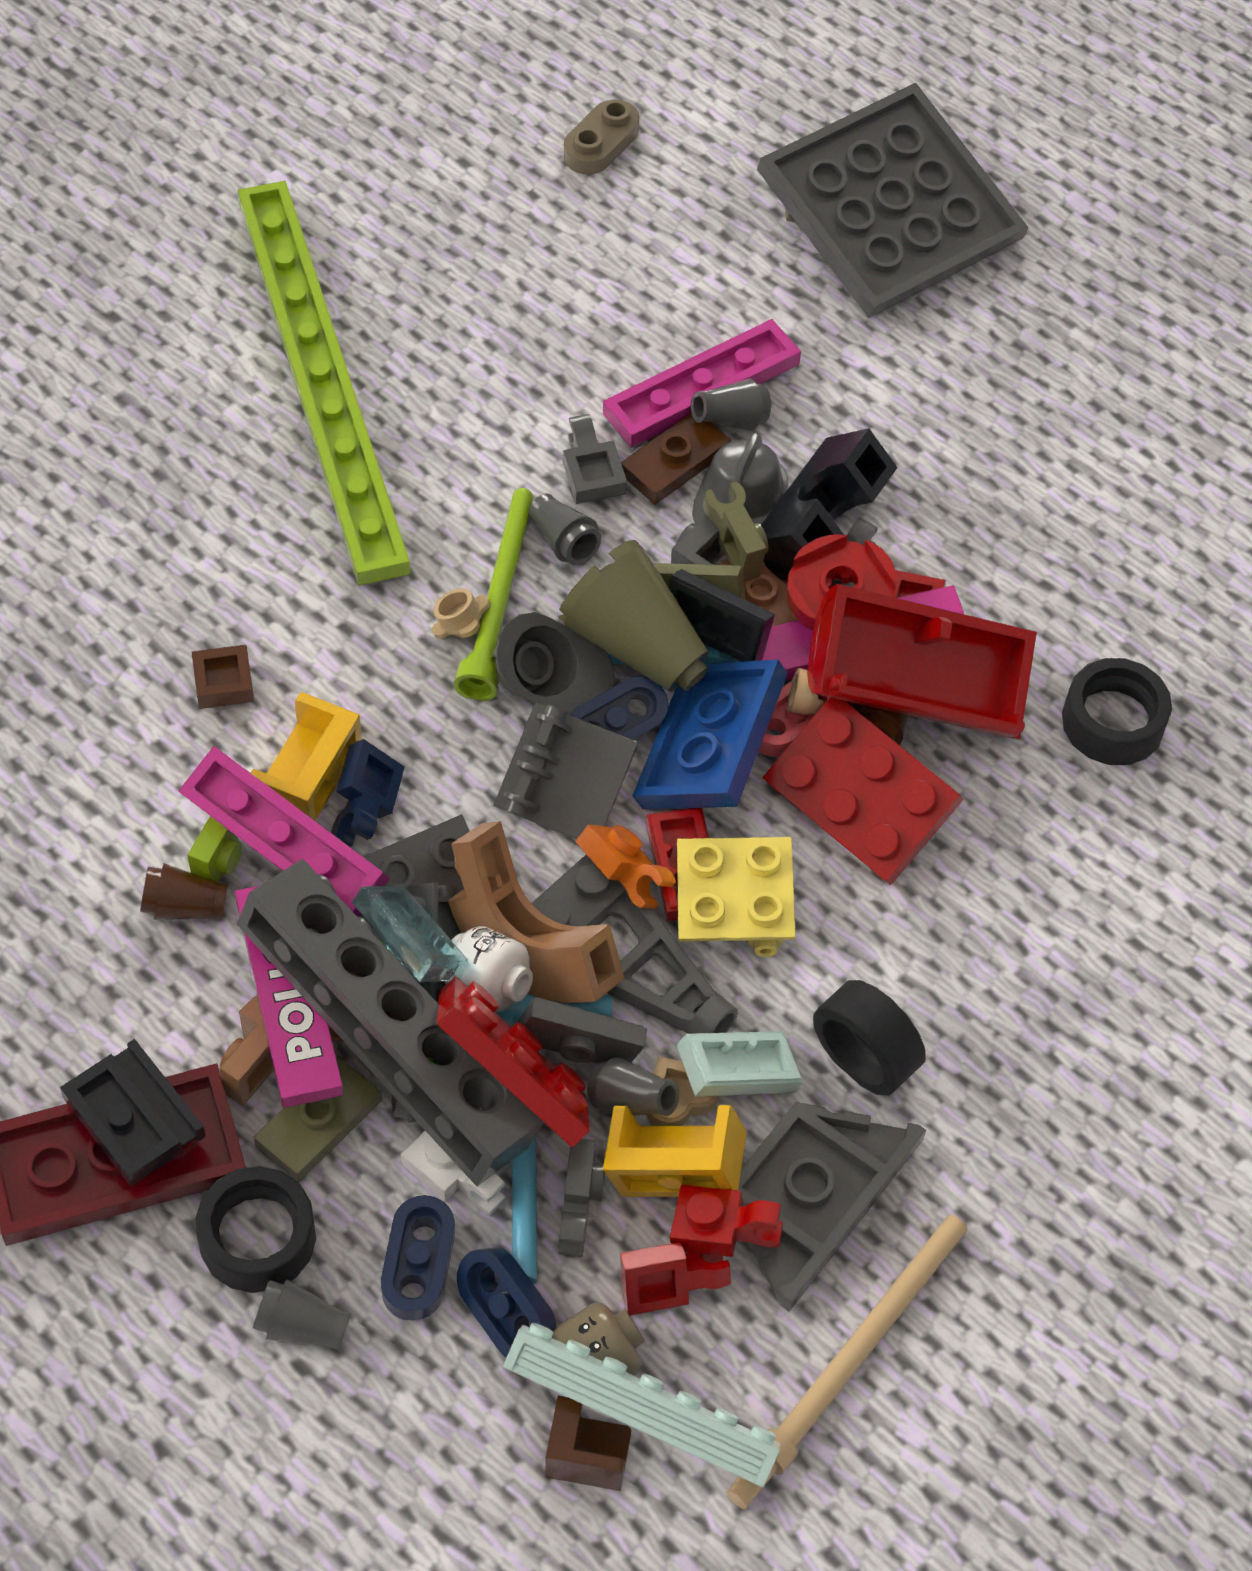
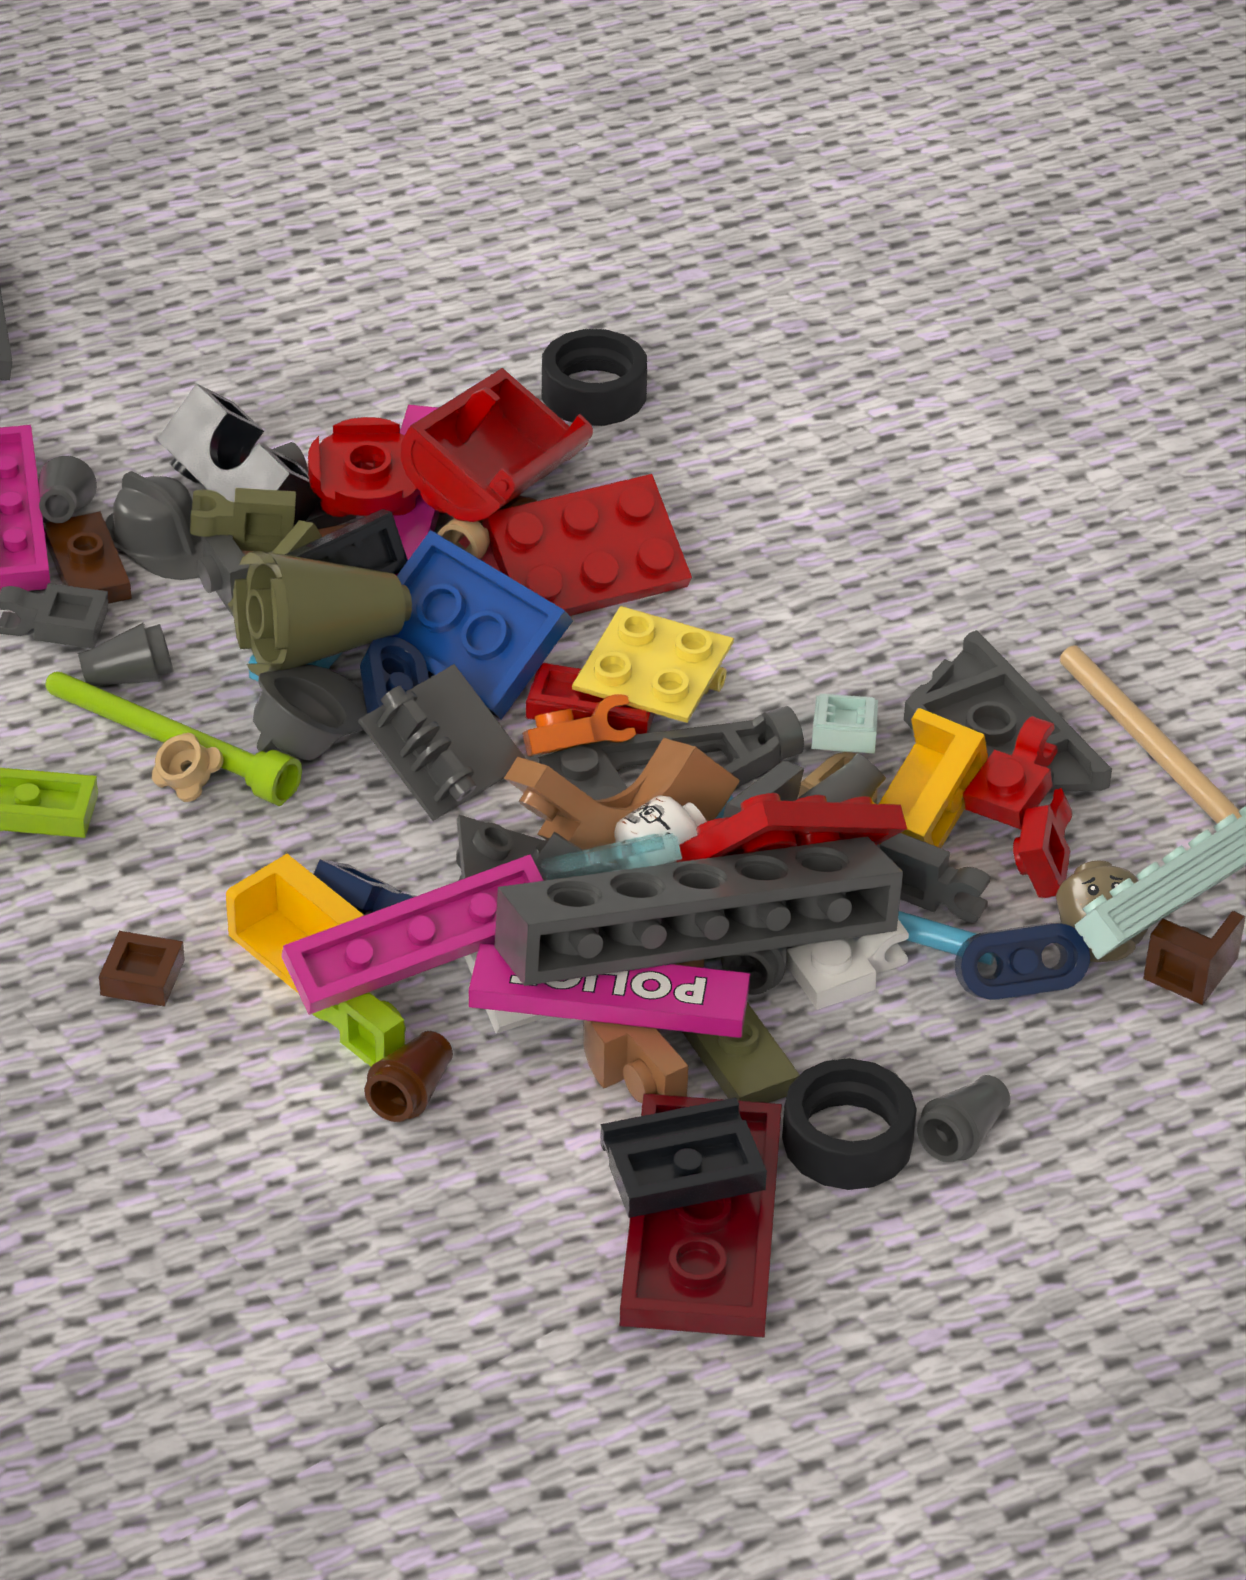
camera: 65 degrees left, 15 degrees down
(418, 1260) = (939, 1013): dark blue plate -> none
(869, 1037) = (854, 598): black tyre -> none

